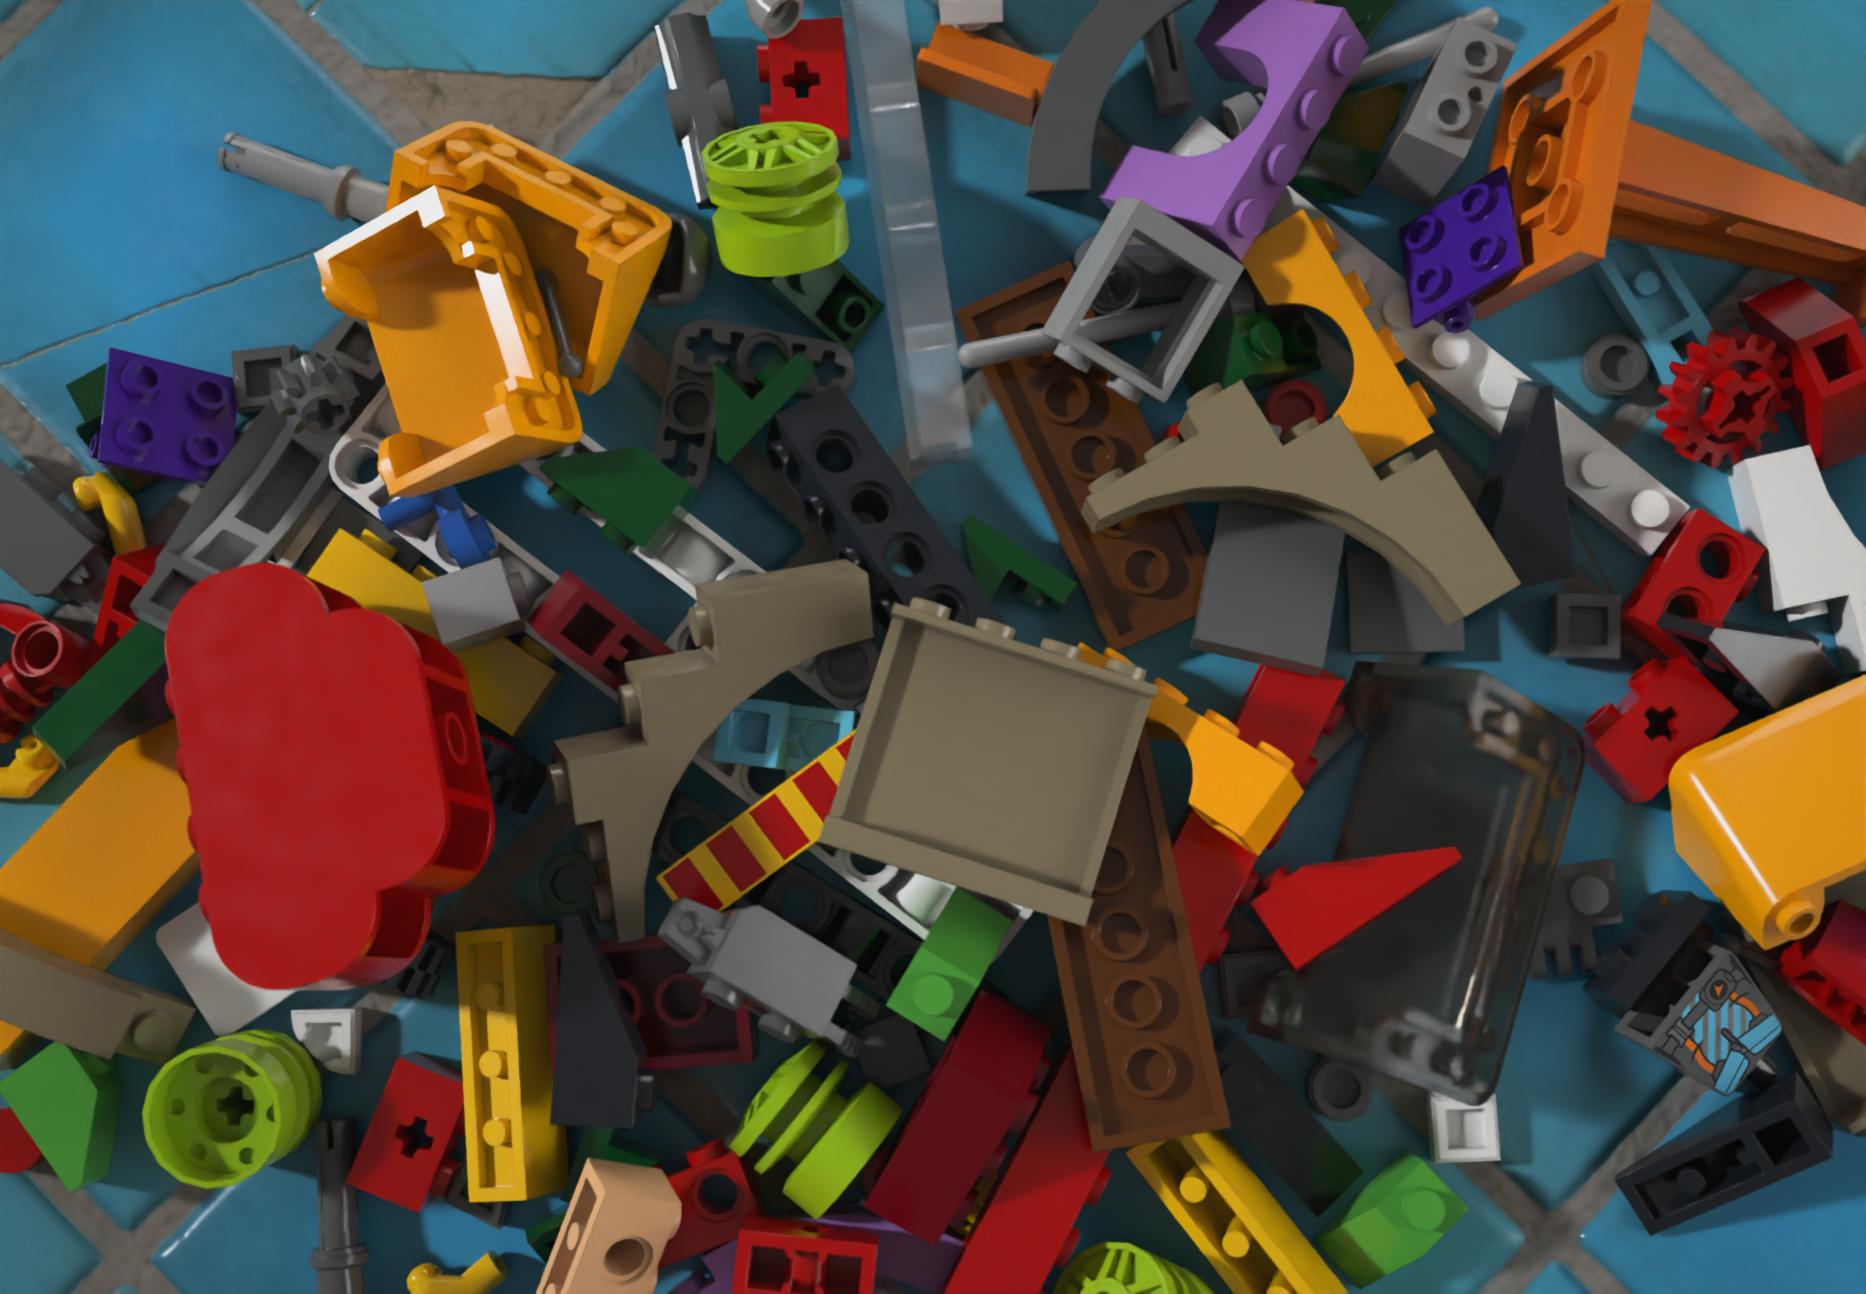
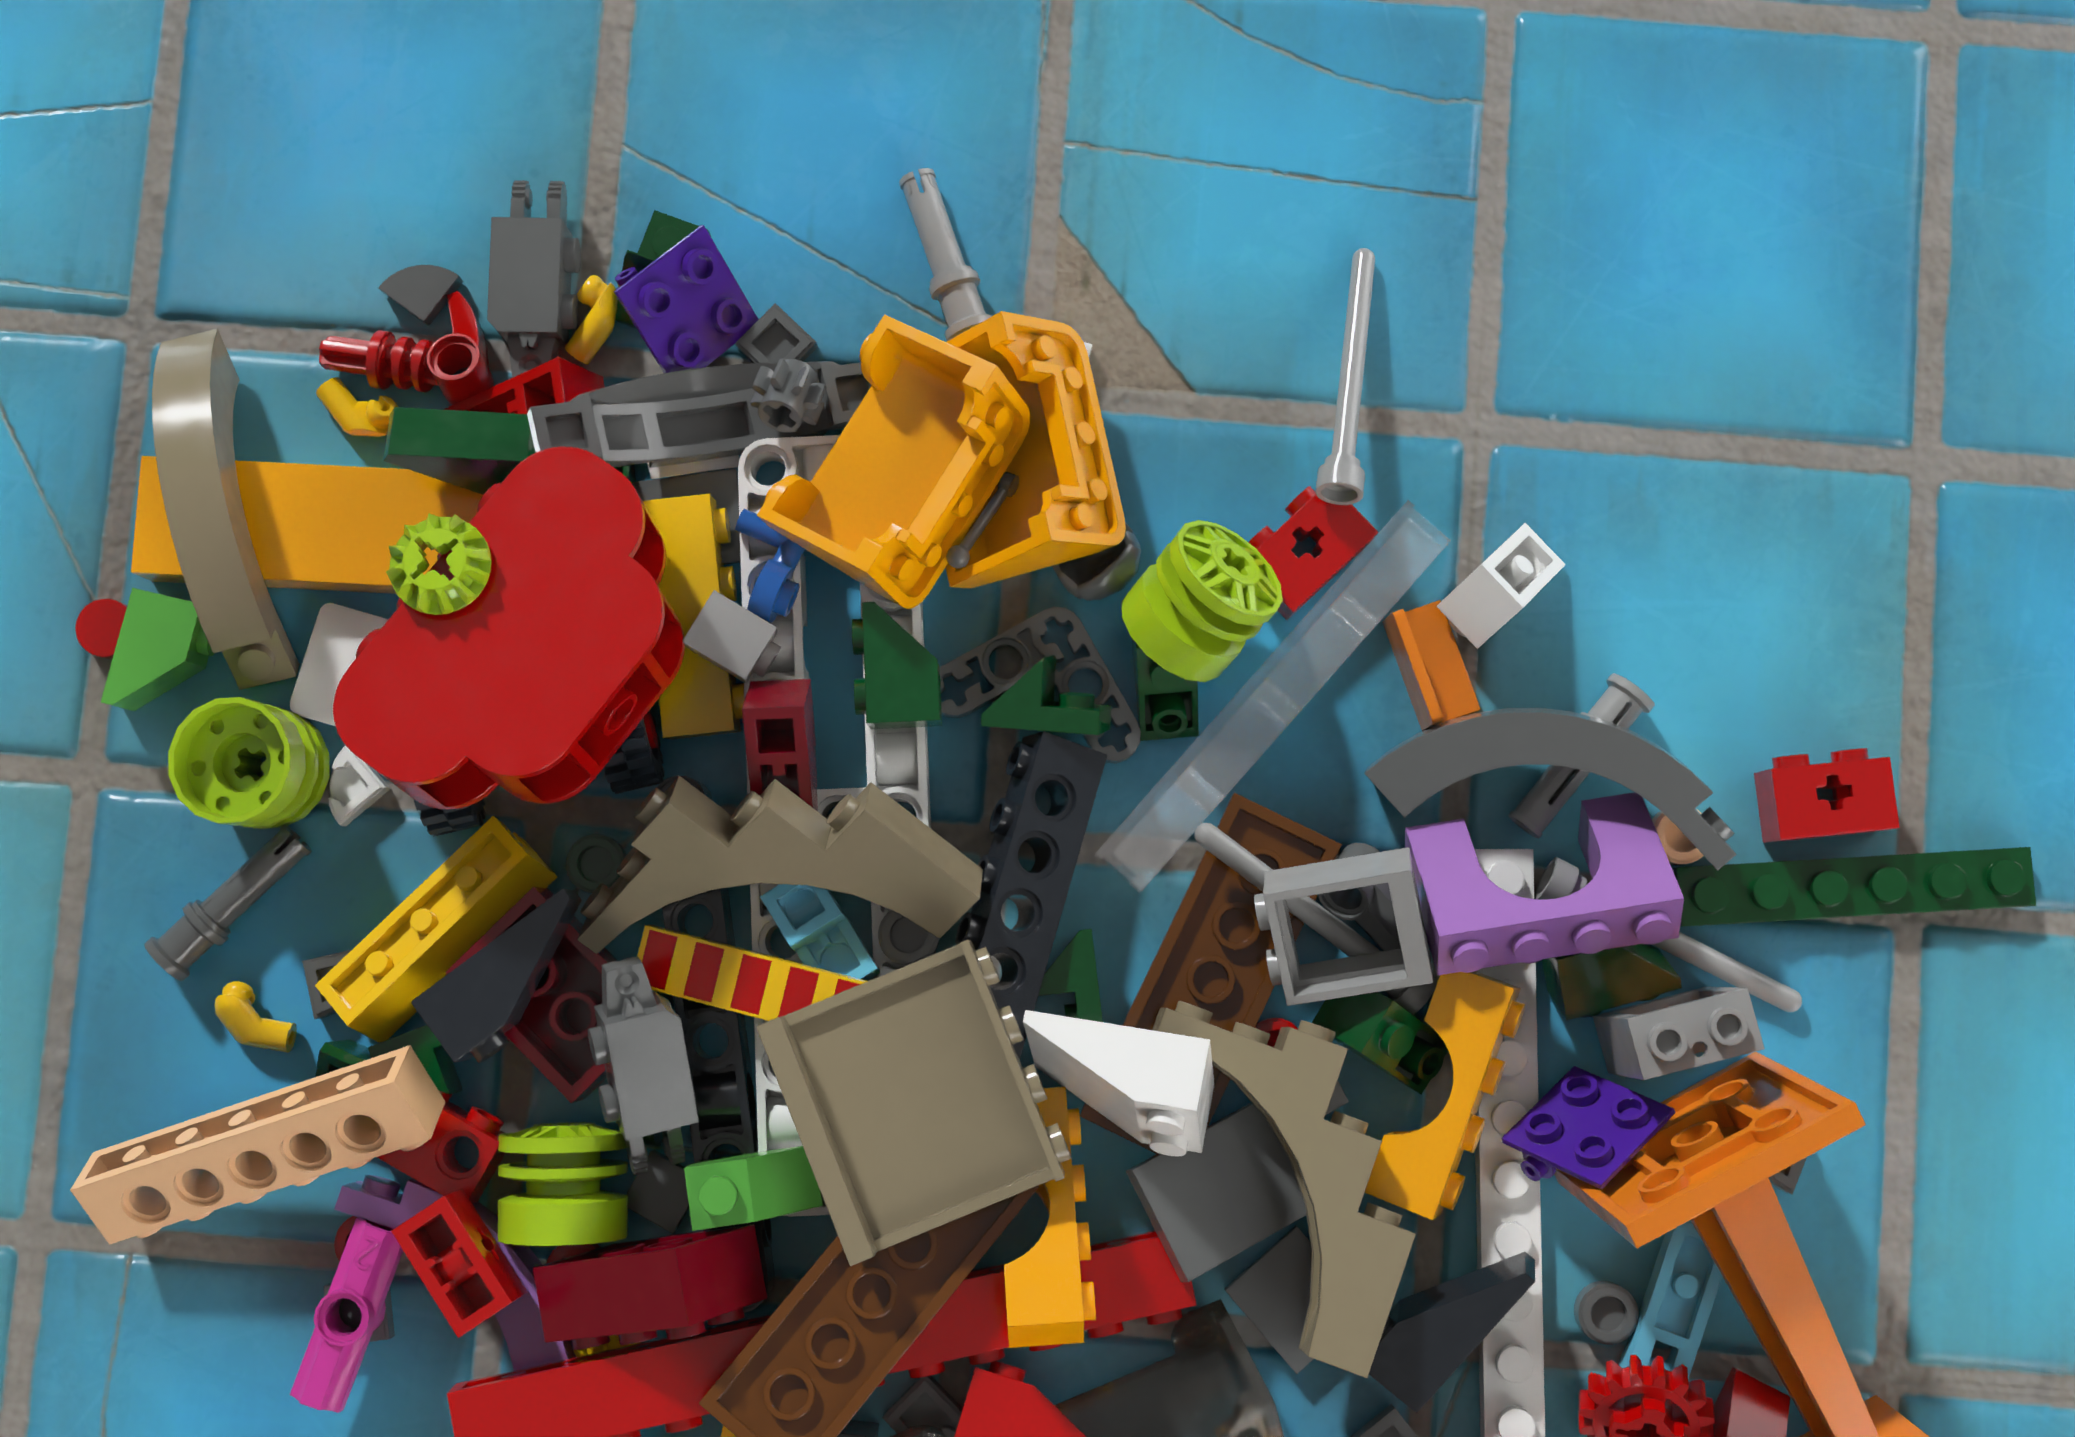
camera: 50 degrees right, 0 degrees up
(207, 804) = (434, 592): none -> lime gear
(389, 1156) = (300, 903): red brick -> none
(696, 95) = (1236, 475): dark grey piece -> none
(1116, 575) = (1136, 1077): none -> white slope
(1293, 403) = (1372, 1099): red tile -> none

